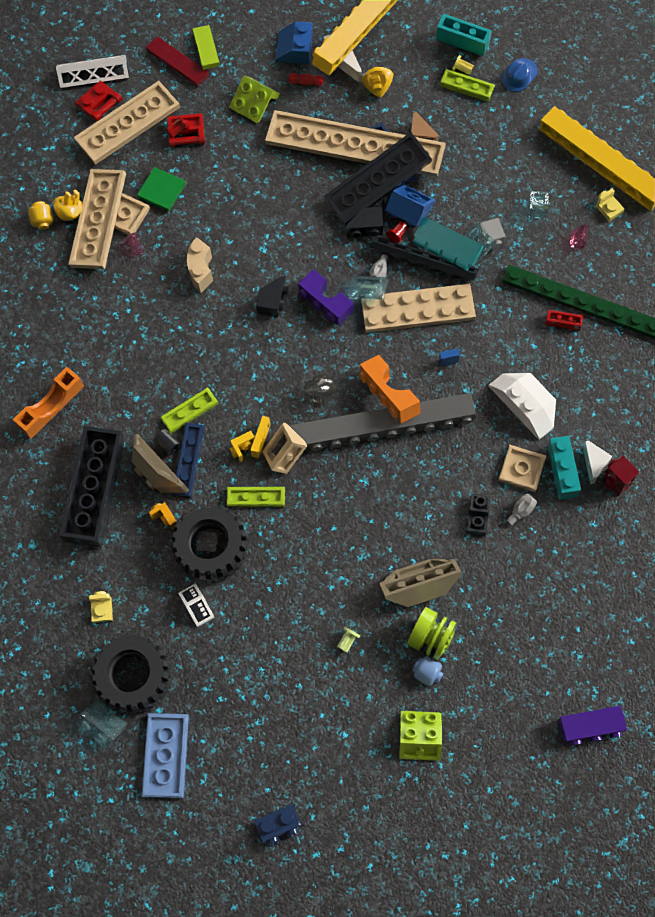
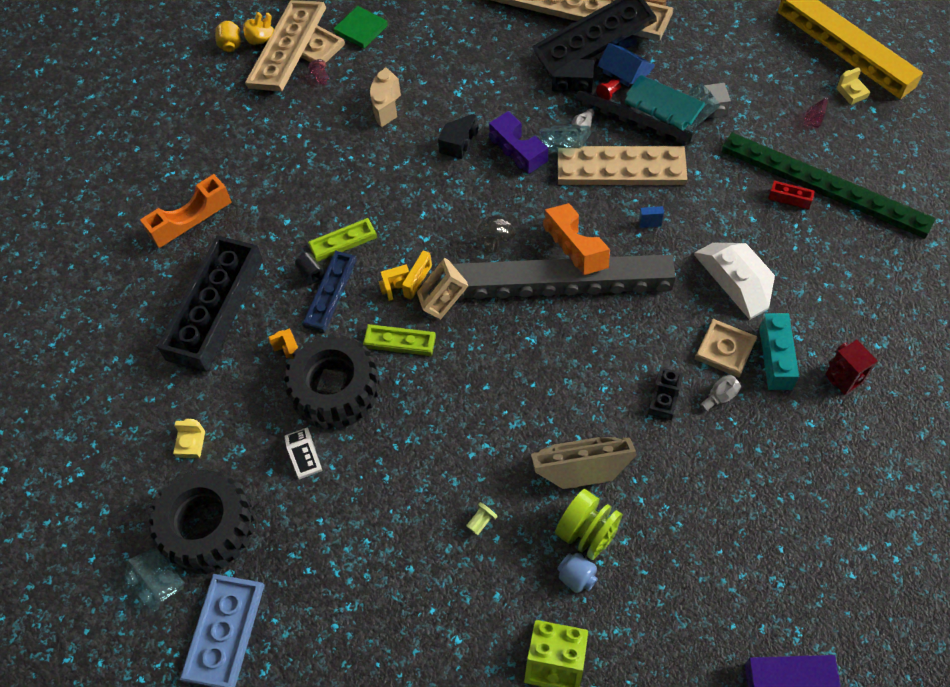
camera: 10 degrees right, 10 degrees down
(154, 469) = (287, 293): dark tan wedge -> none
(538, 205) = (771, 79): clear light blue bracket -> none
(595, 459) = (819, 348): white slope -> none

